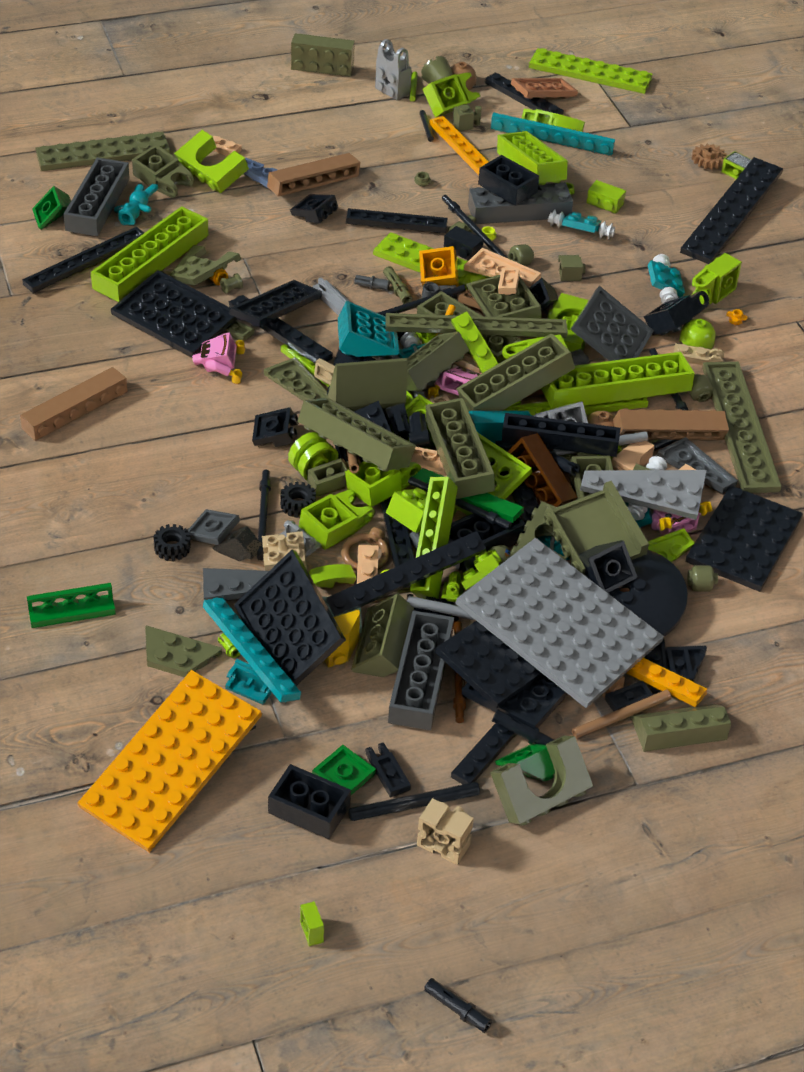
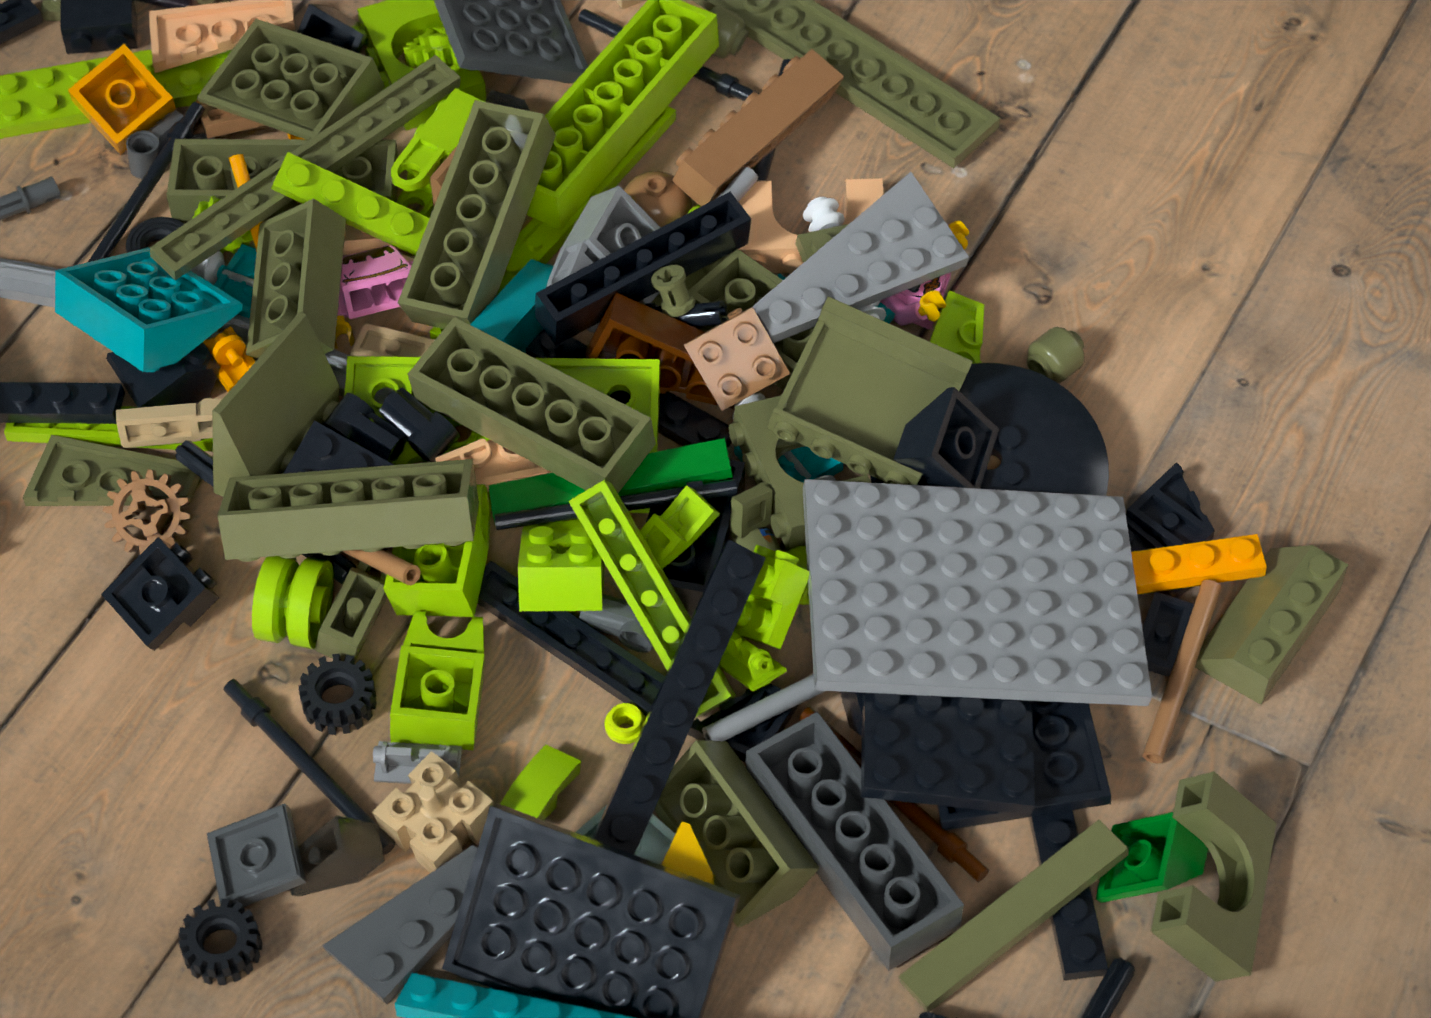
camera: 40 degrees left, 10 degrees up
(296, 395) = (143, 495): none -> medium nougat gear
(367, 562) = (582, 733): light nougat plate -> none
(374, 537) = (529, 666): medium nougat piece -> none
(404, 295) = (105, 187): olive pin -> none
(453, 738) = (1013, 916): none -> olive tile
(466, 524) = (678, 526): none -> lime slope
(507, 538) = (751, 510): none -> olive plate
(508, 281) = (275, 46): light nougat plate -> none
(520, 728) = (1080, 817): black pin -> none
(561, 448) = (673, 290): none -> olive bush
(561, 485) = (736, 358): none -> hinge
(686, 452) = (822, 164): dark grey wing -> none
(745, 537) = (1033, 241): black plate -> none

